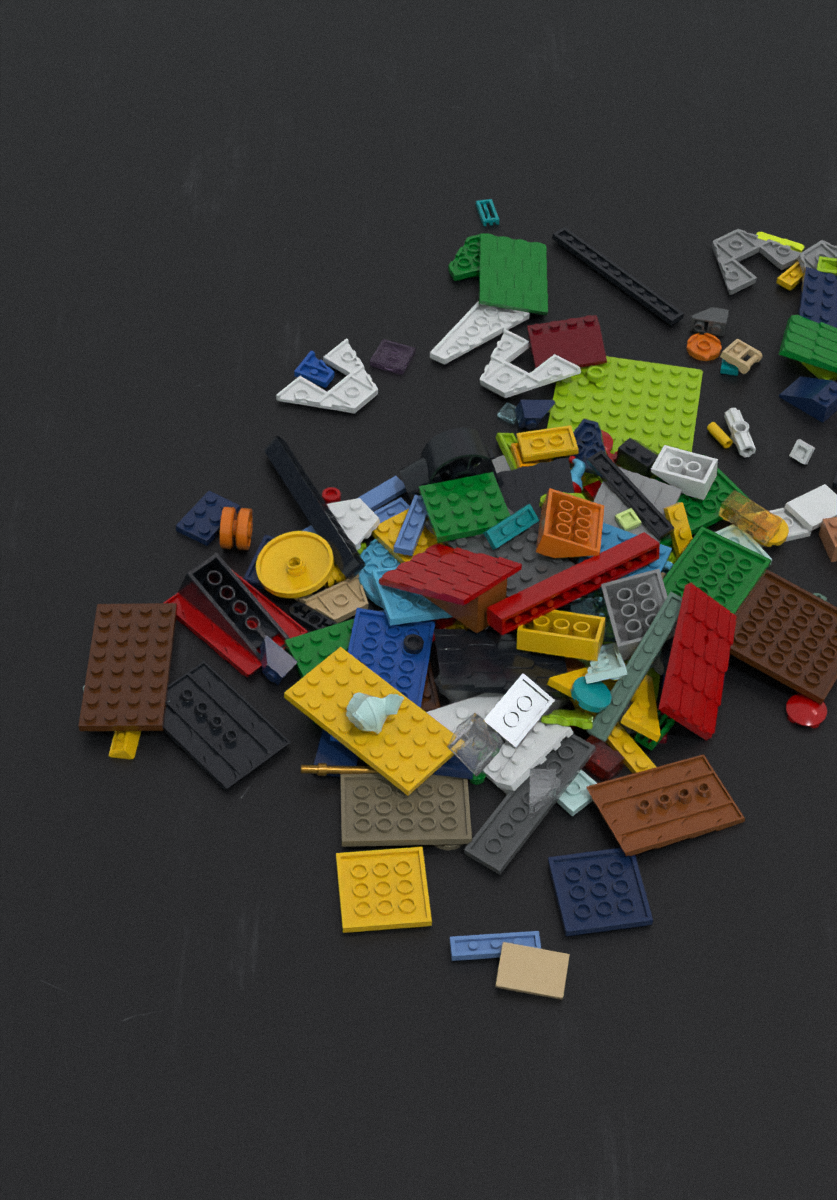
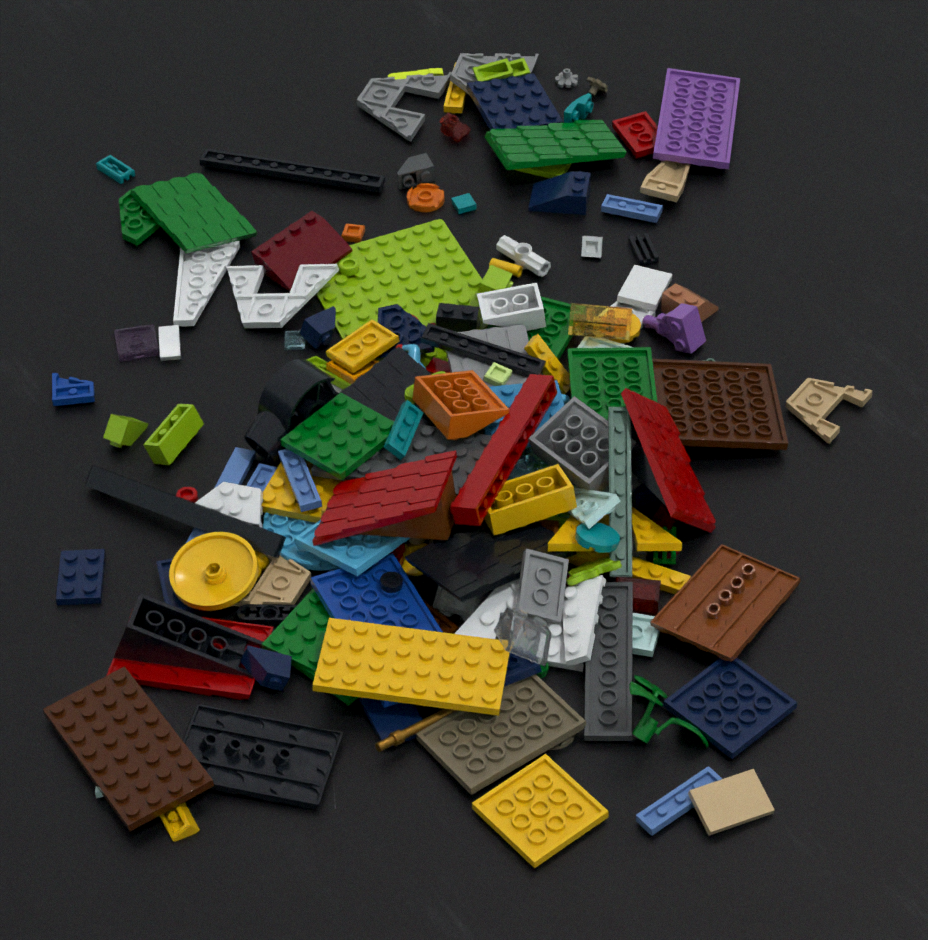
camera: 30 degrees left, 5 degrees down
(236, 527) = (125, 568): orange wheel -> none
(326, 420) = (123, 430): none -> lime slope
(345, 396) = (124, 395): white wing -> none
(356, 442) = (173, 434): none -> lime brick
(370, 712) = (413, 656): light aqua helmet -> none
(414, 368) = (169, 343): none -> white slope
(518, 869) = (647, 725): none -> green plant
(542, 789) = (616, 642): clear slope -> none
(624, 348) = (353, 233): none -> orange tile
(697, 442) = (495, 280): none -> lime brick
(737, 351) = (463, 190): tan plate -> none
(771, 299) = (452, 126): none -> clear red plate
(805, 711) = (775, 463): red dish -> none
(817, 556) = (680, 326): none -> medium lavender brick

